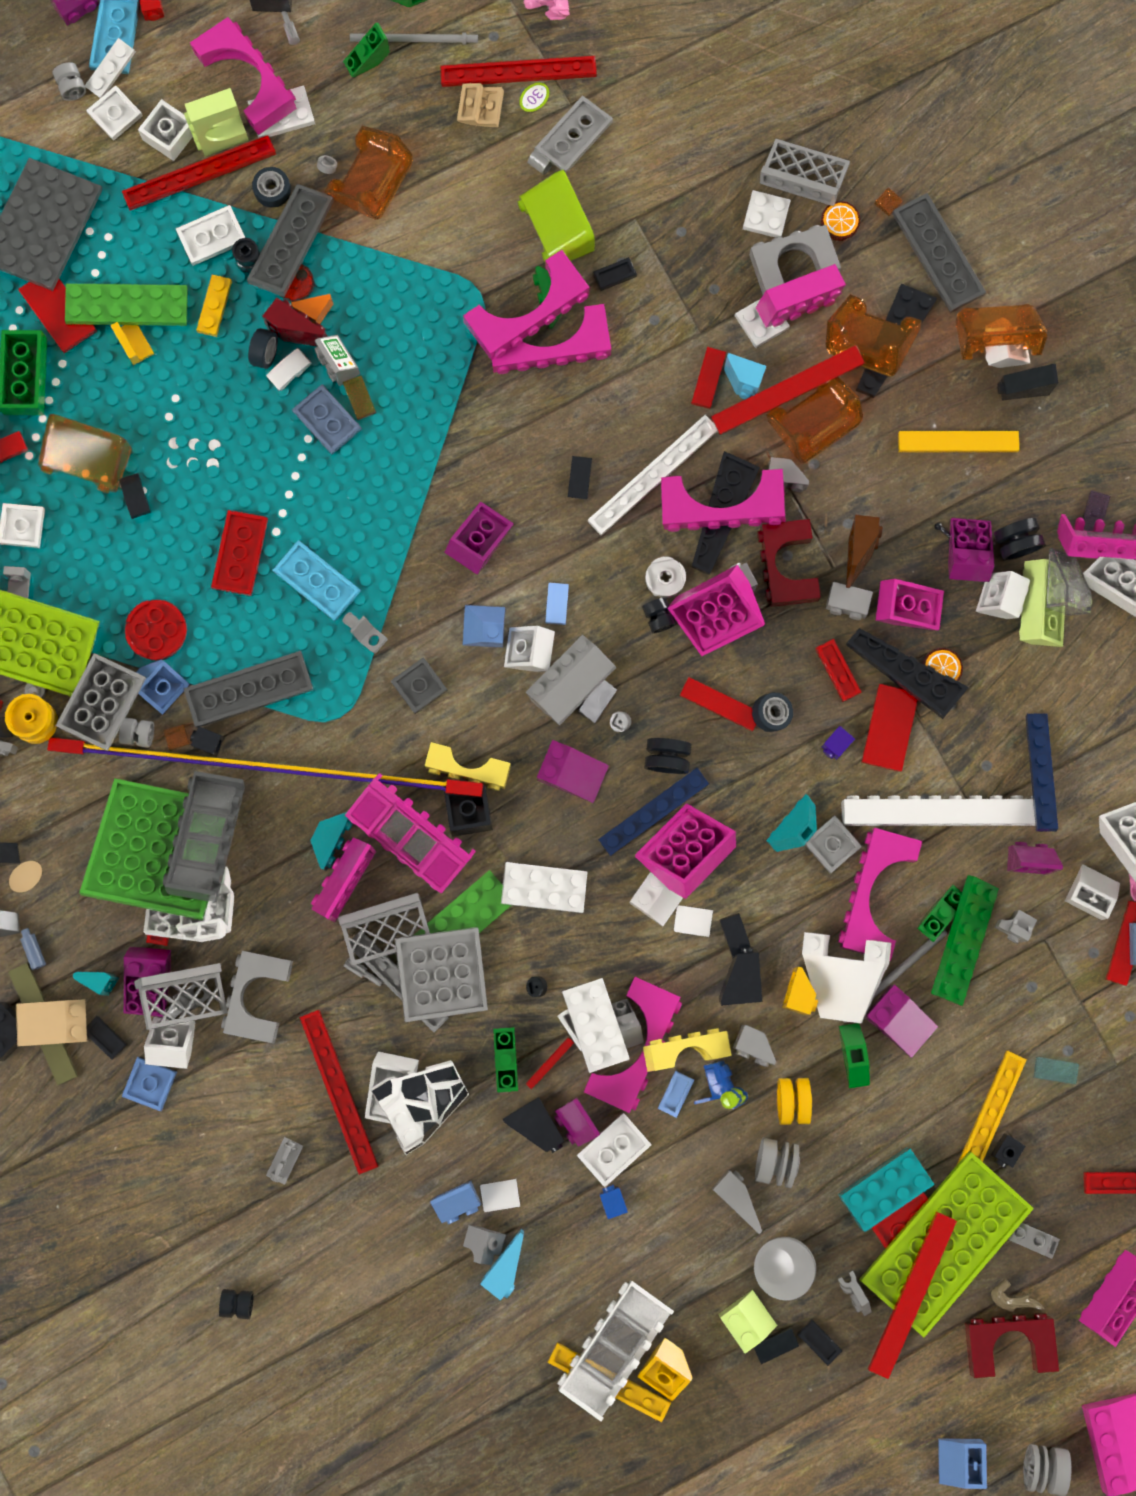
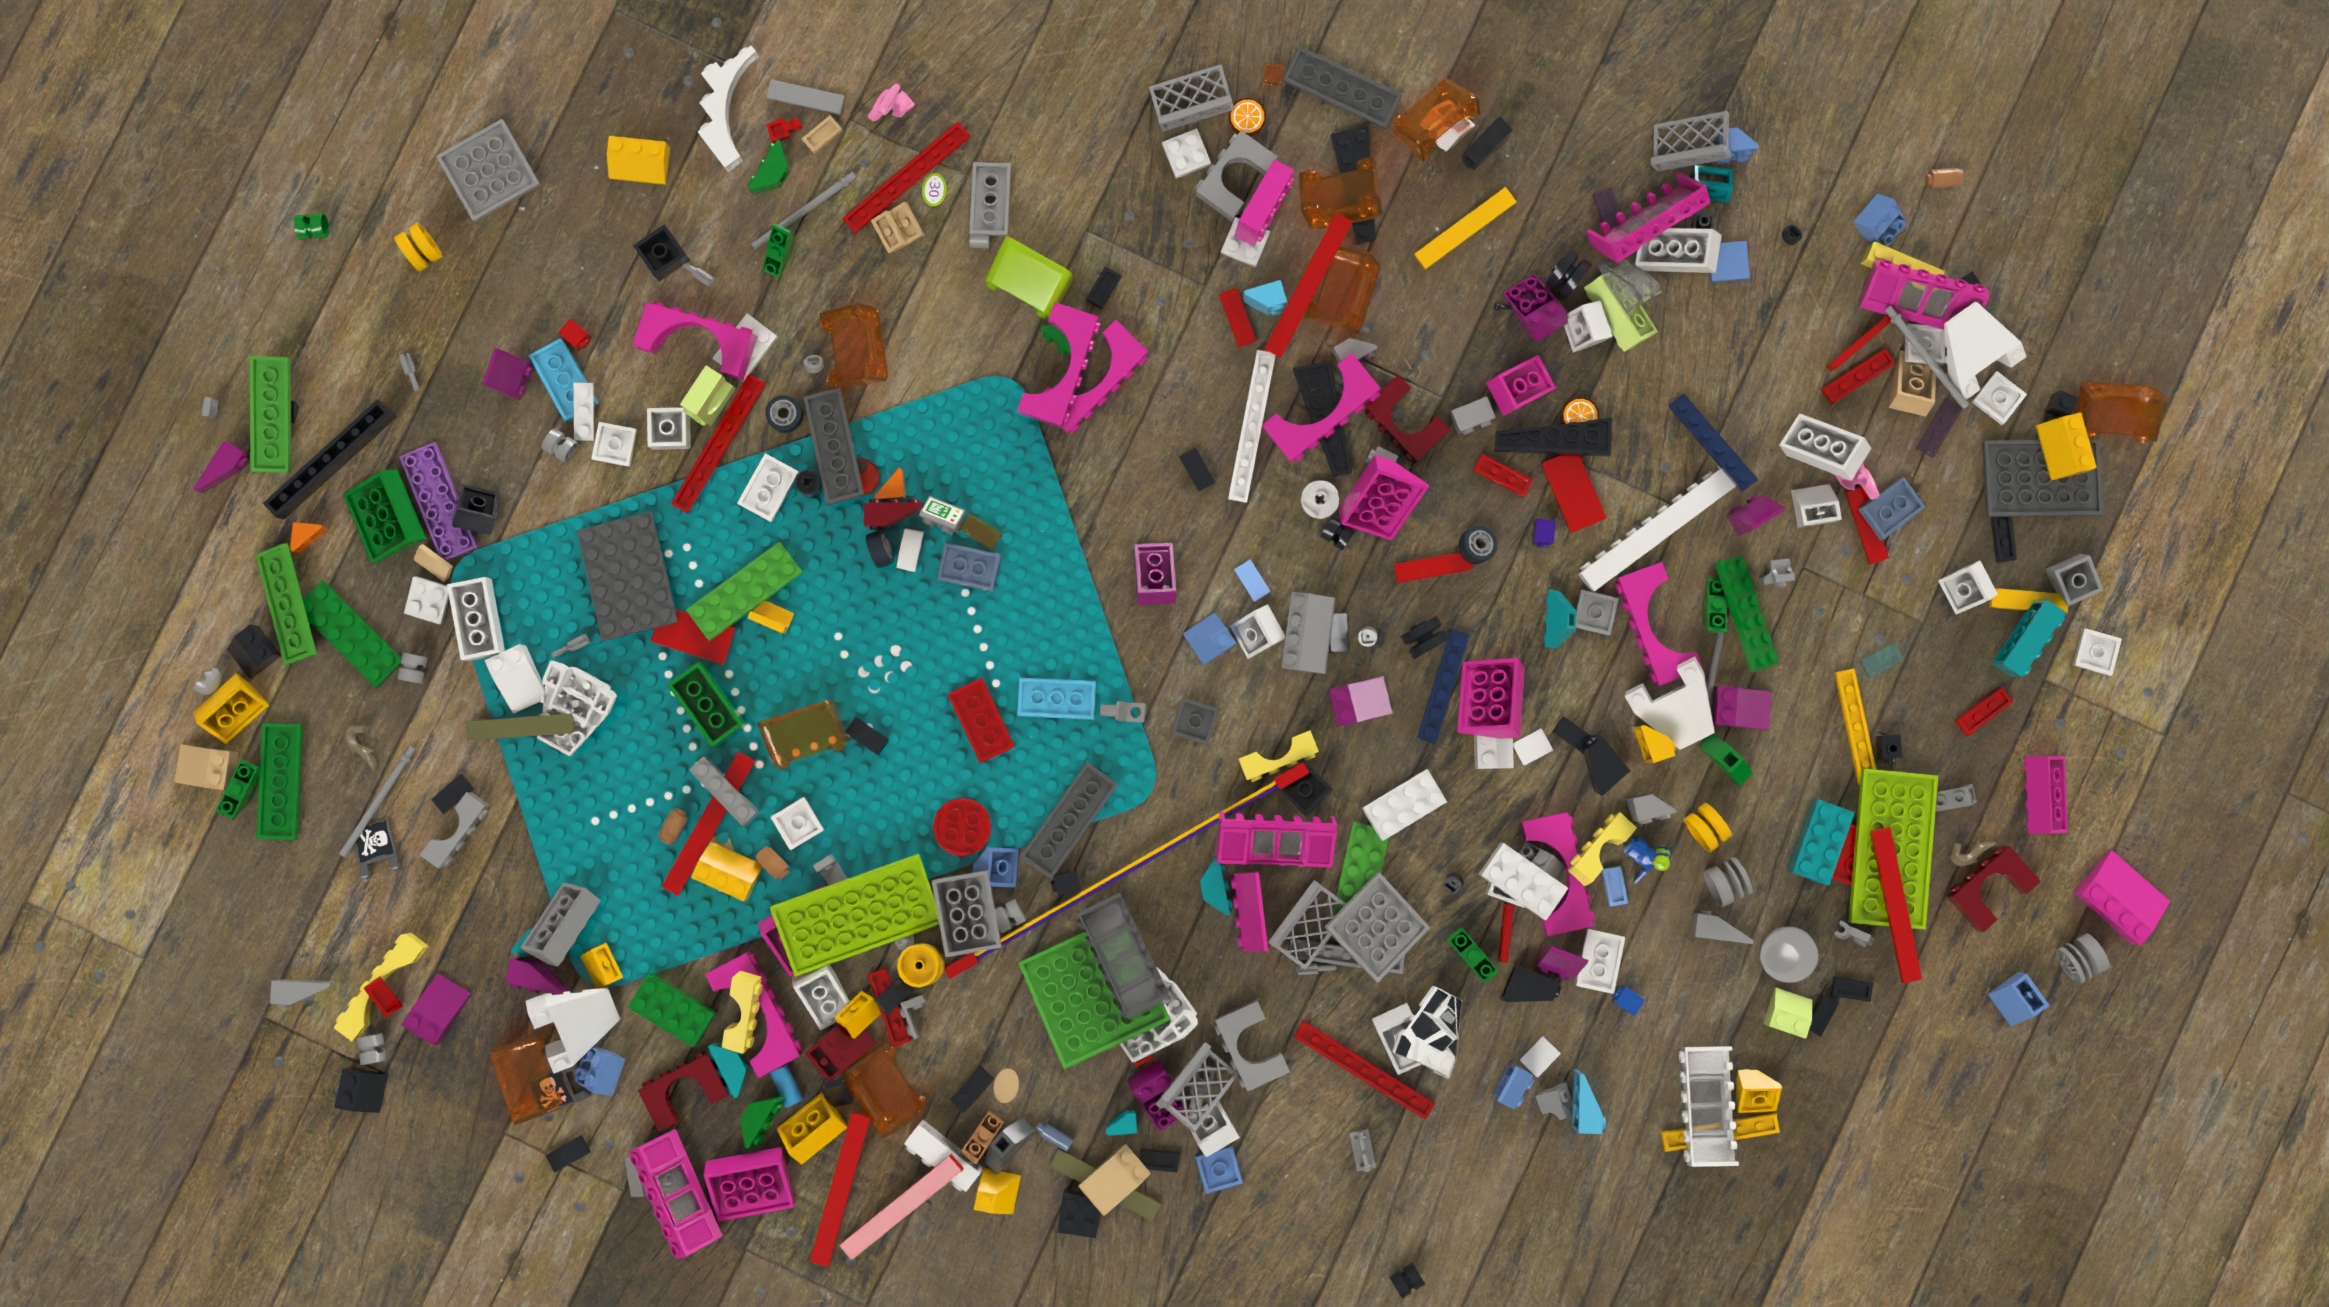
camera: 35 degrees left, 5 degrees up
(176, 737) = (1040, 896): clear orange tile -> none
(214, 305) = (813, 541): yellow plate -> none
(861, 544) = (1450, 363): reddish brown slope -> none

